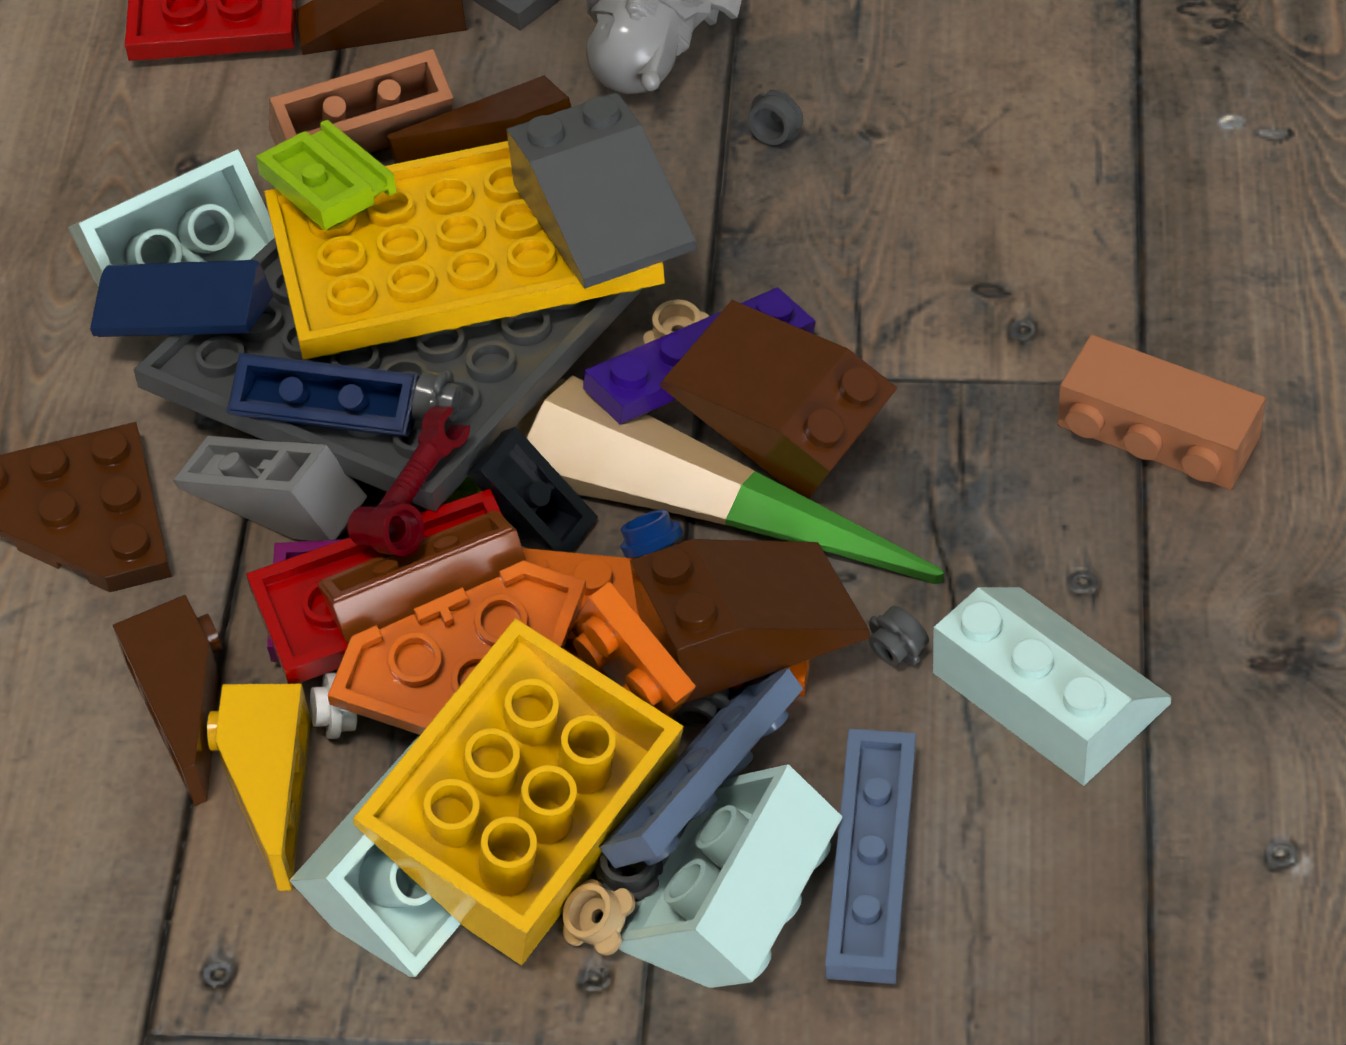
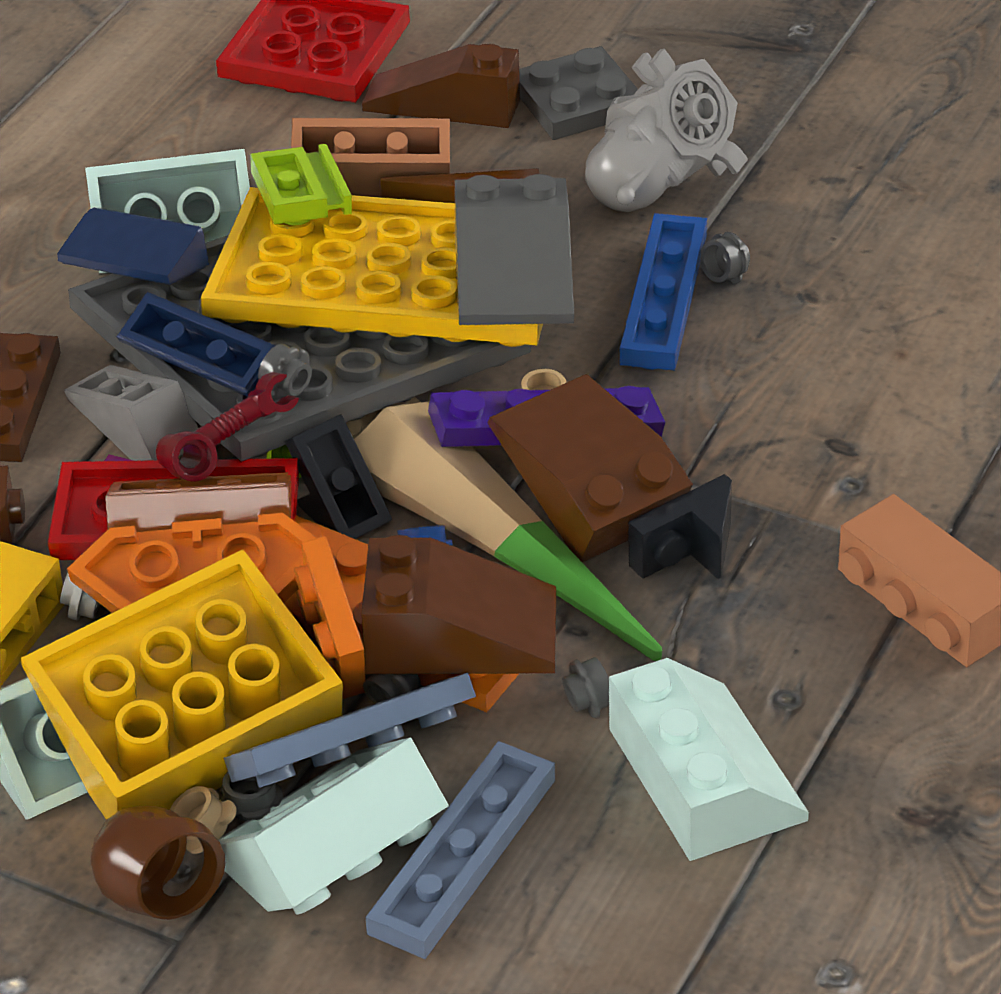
camera: 20 degrees right, 10 degrees down
(564, 978) = (150, 846): none -> reddish brown helmet
(735, 174) = (663, 292): none -> blue plate
(907, 429) = (685, 526): none -> black slope

